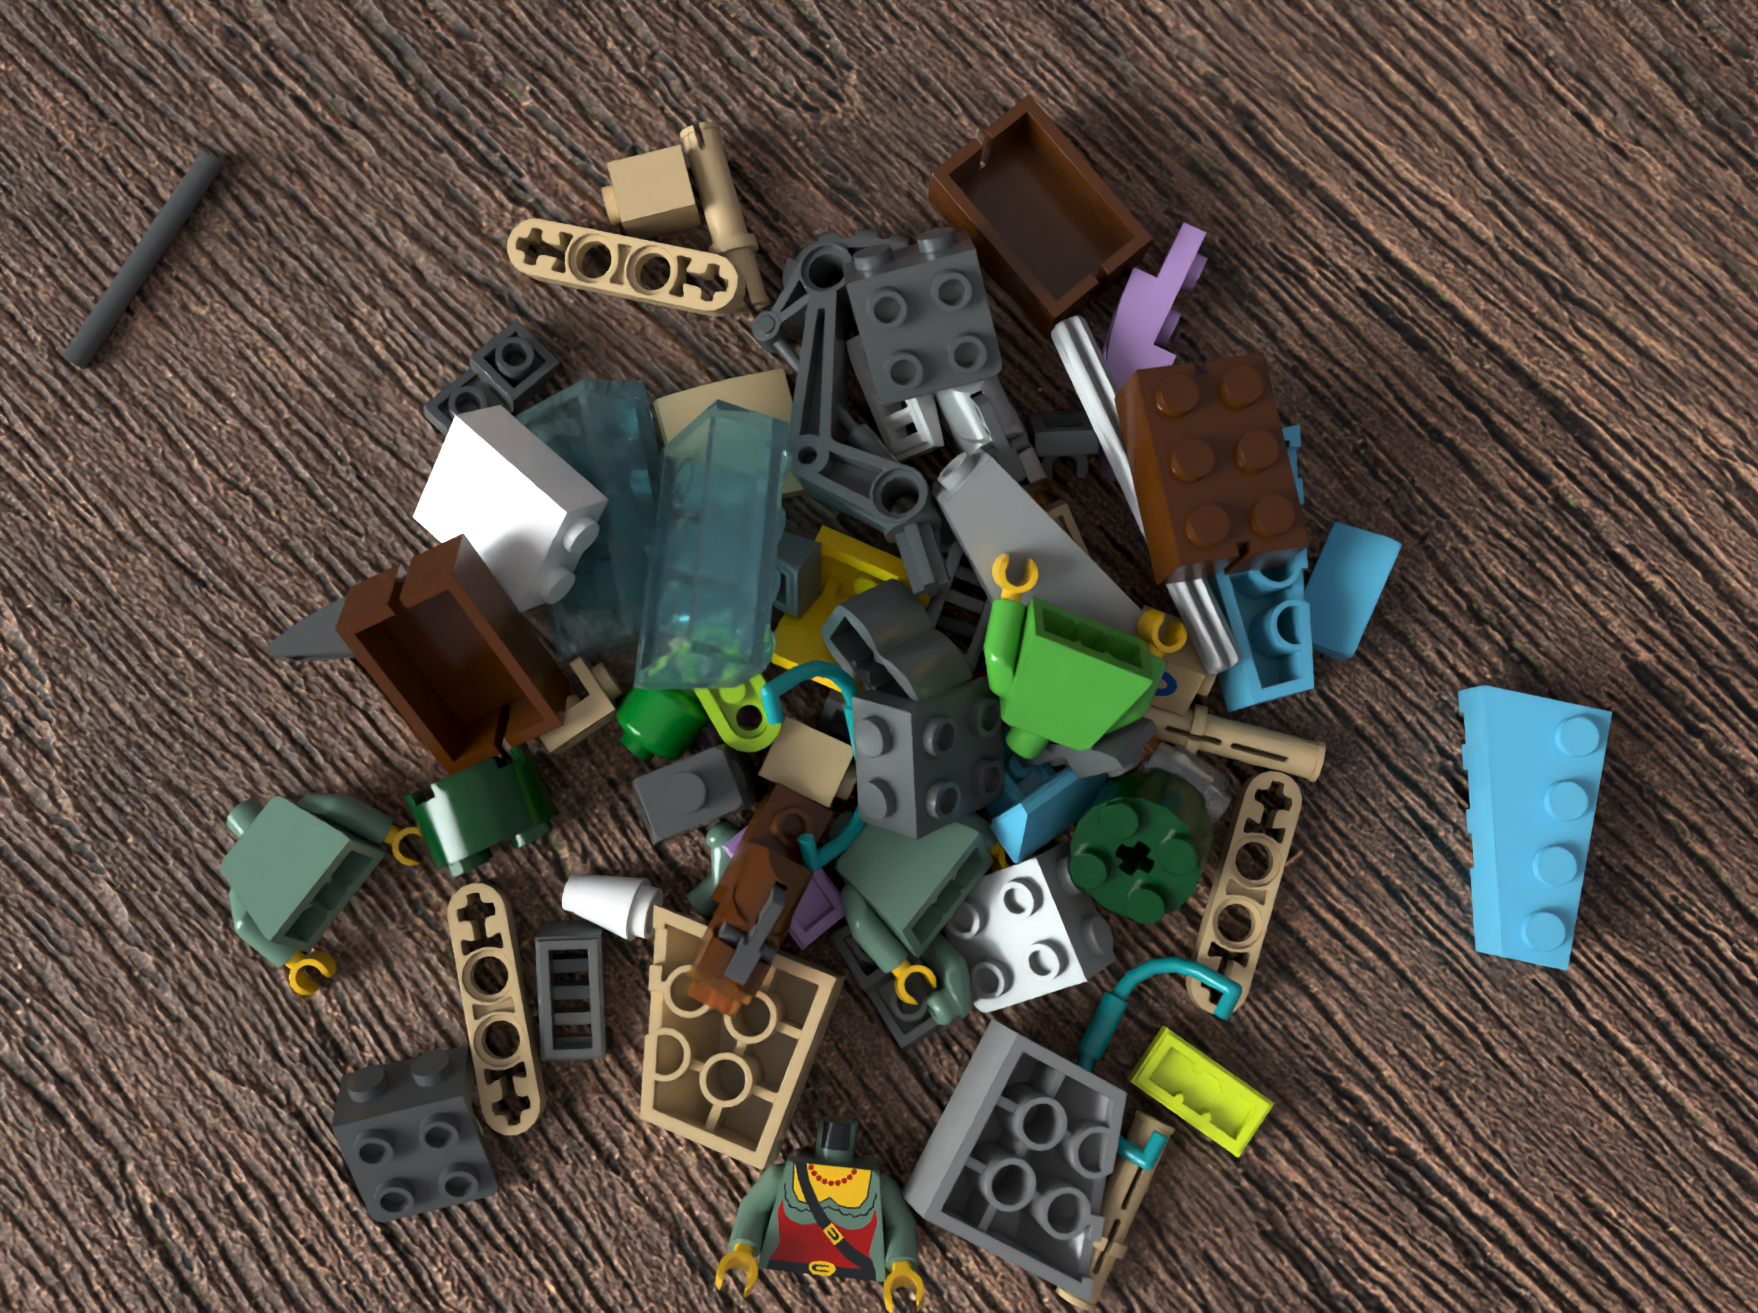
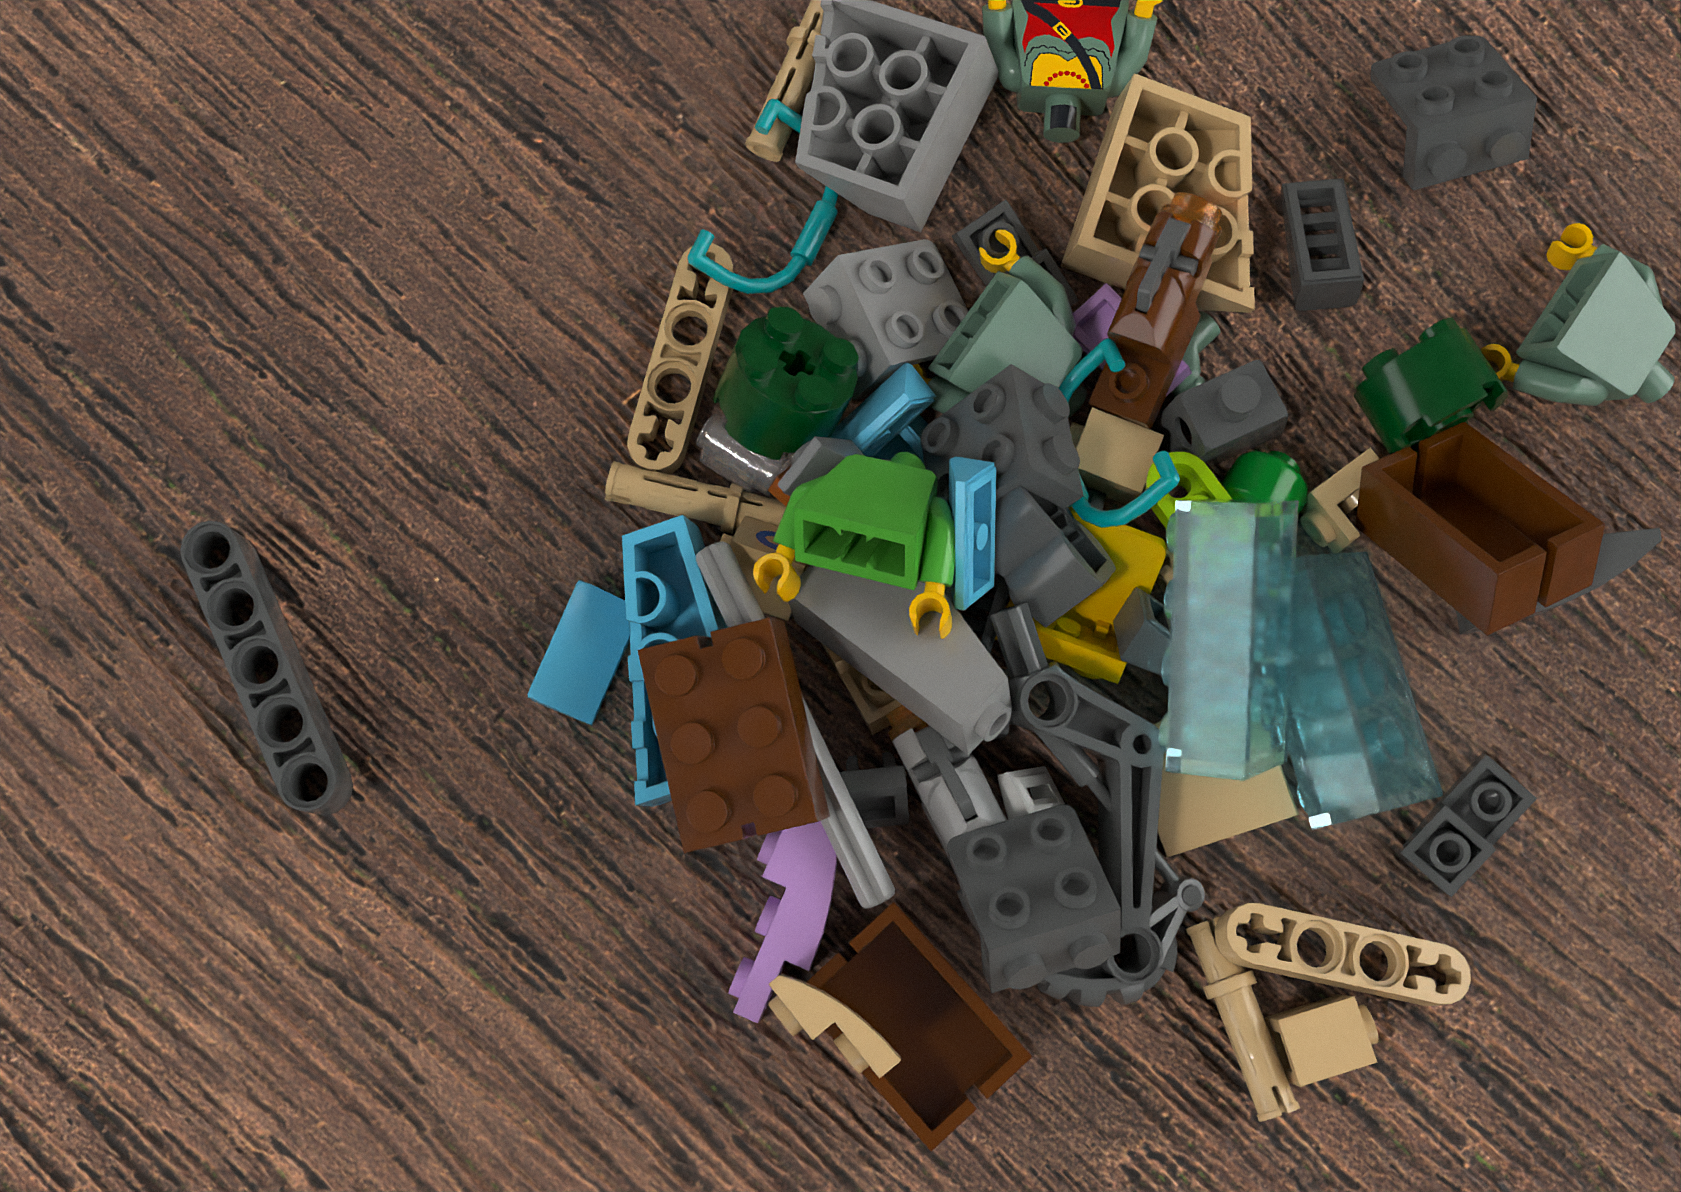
camera: 175 degrees left, 5 degrees down
(485, 1008) = (1380, 226): tan beam -> none
(513, 503) = (1438, 683): white brick -> none
(614, 903) = (1289, 320): white cone -> none
(951, 968) = (961, 265): sand green arm -> none
(968, 662) = (973, 510): none -> medium azure slope
(1135, 215) = (814, 1010): none -> tan slope
(1200, 1091) = (721, 176): neon yellow plate -> none
(1530, 817) = (404, 436): medium azure wedge -> none
(1686, 598) = (244, 648): none -> dark grey beam

